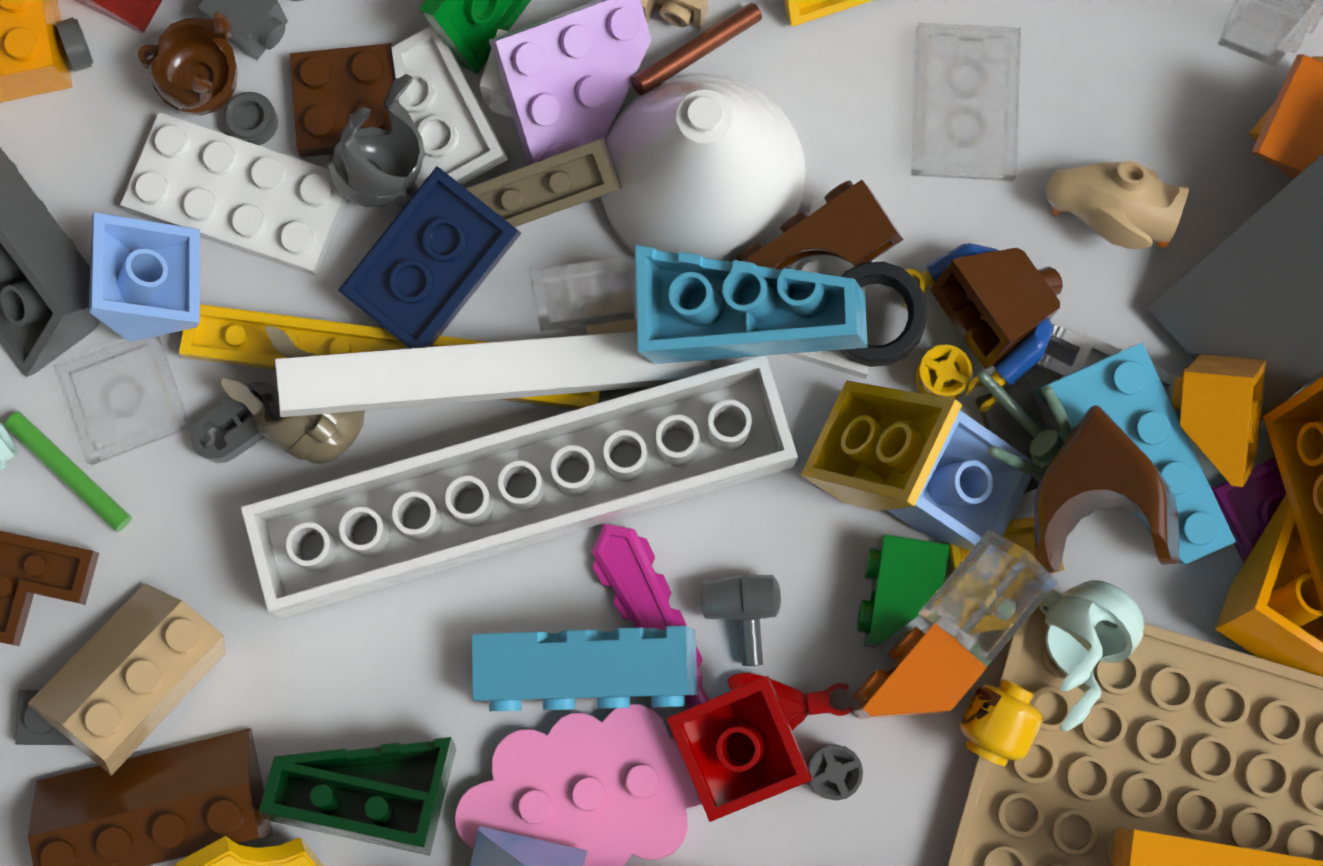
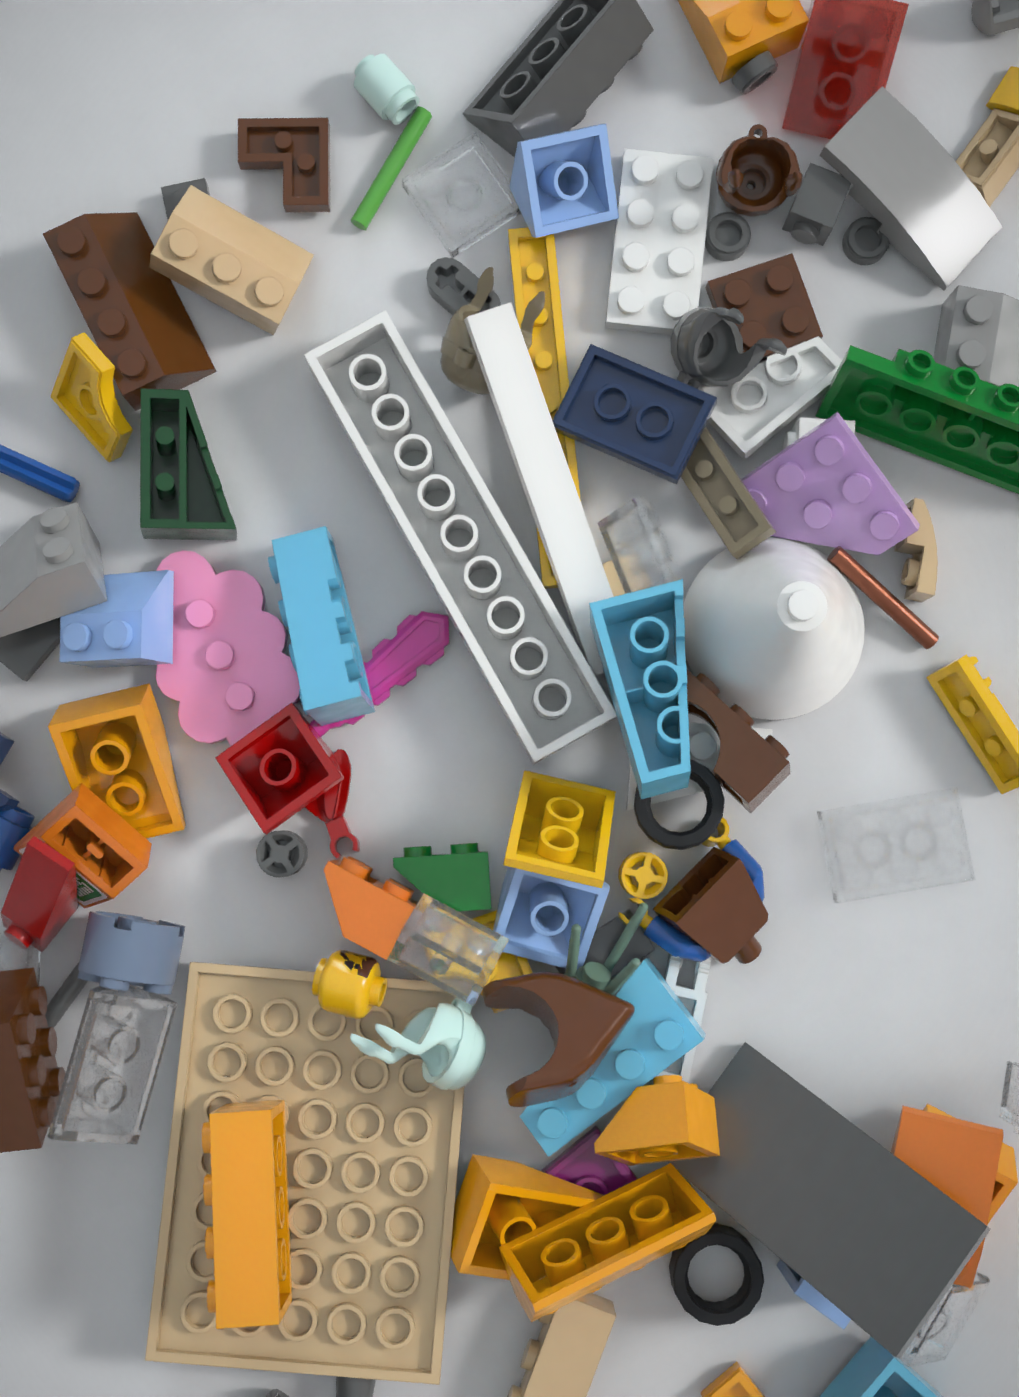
camera: 70 degrees right, 5 degrees up
(744, 600) = (408, 749): dark grey piece -> none
(1119, 202) = (833, 998): tan animal -> none

